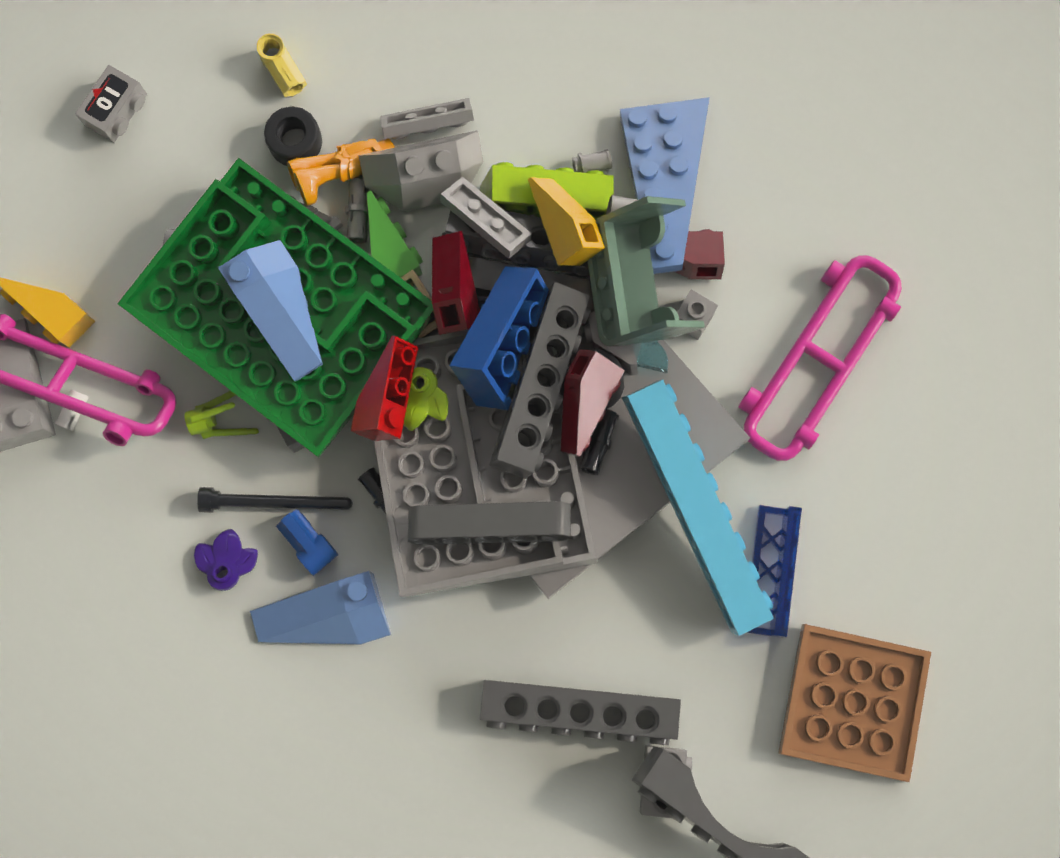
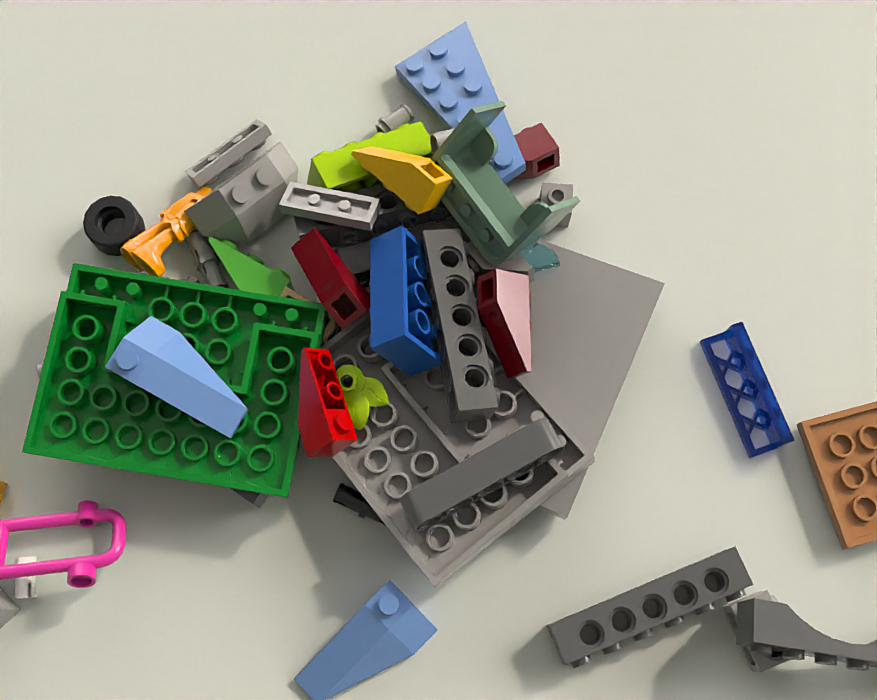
camera: 30 degrees left, 5 degrees down
(203, 419) = (157, 519): lime plant -> none
(212, 500) = (203, 592): black piece -> none
(225, 555) = (244, 637): dark purple plate -> none
(280, 65) = (71, 169): light yellow piece -> none
(311, 548) = (321, 587): blue piece -> none
(599, 443) = (539, 369): black pin -> none
(698, 507) = (657, 365): medium azure brick -> none
(756, 403) = (649, 253): dark pink bar -> none

